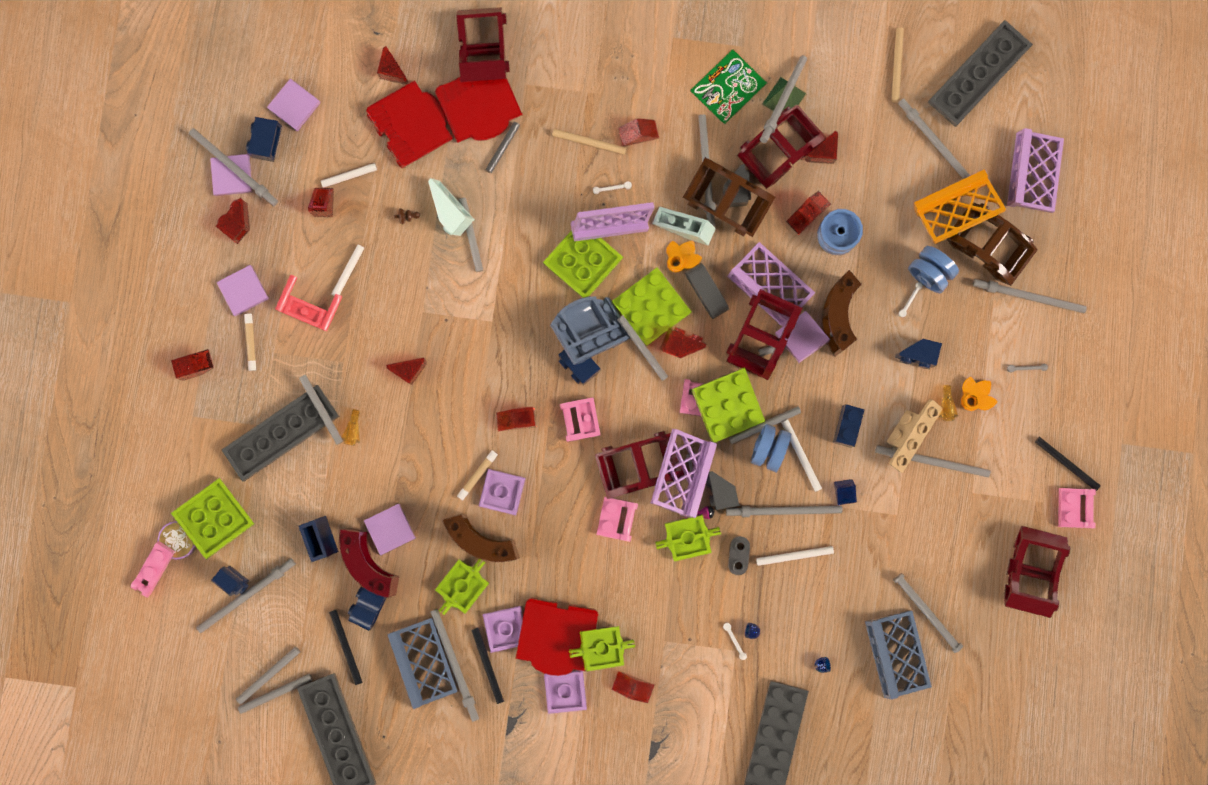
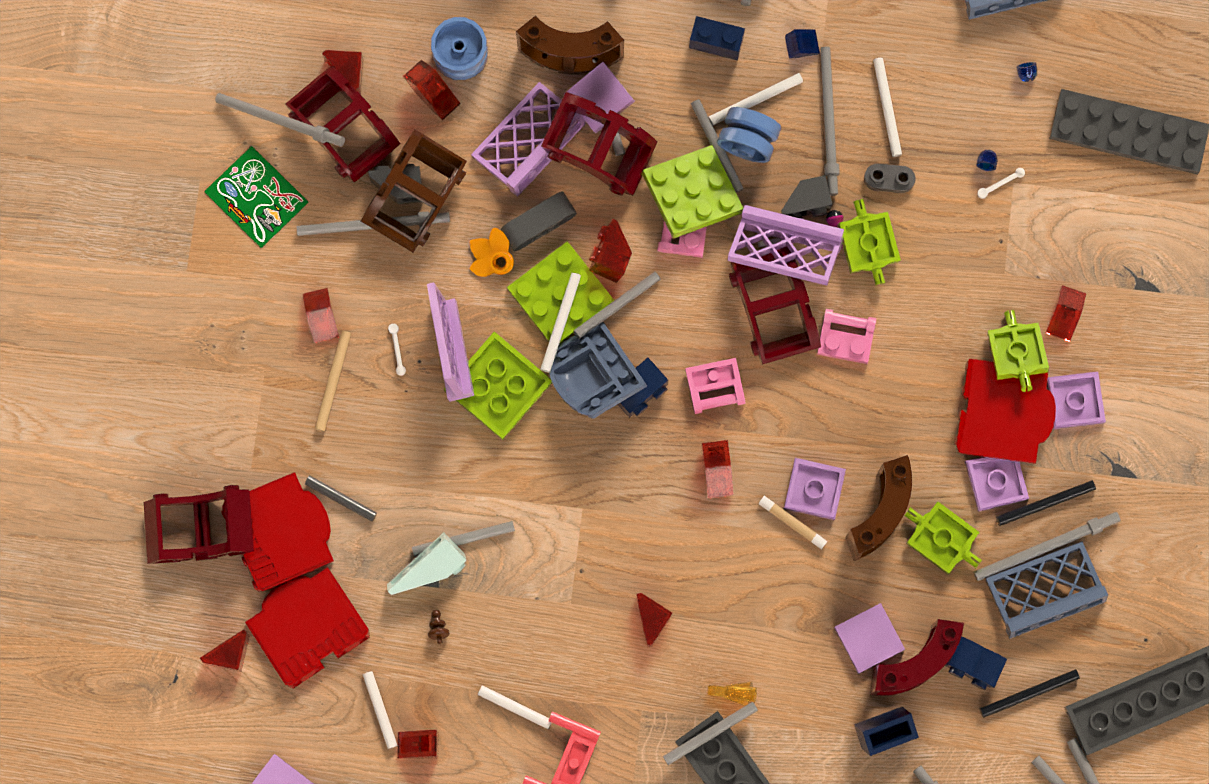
camera: 95 degrees left, 5 degrees down
(628, 305) = (560, 322): none -> white bar
(684, 225) = (450, 250): light aqua slope -> none
(772, 99) = (271, 133): clear green piece -> none

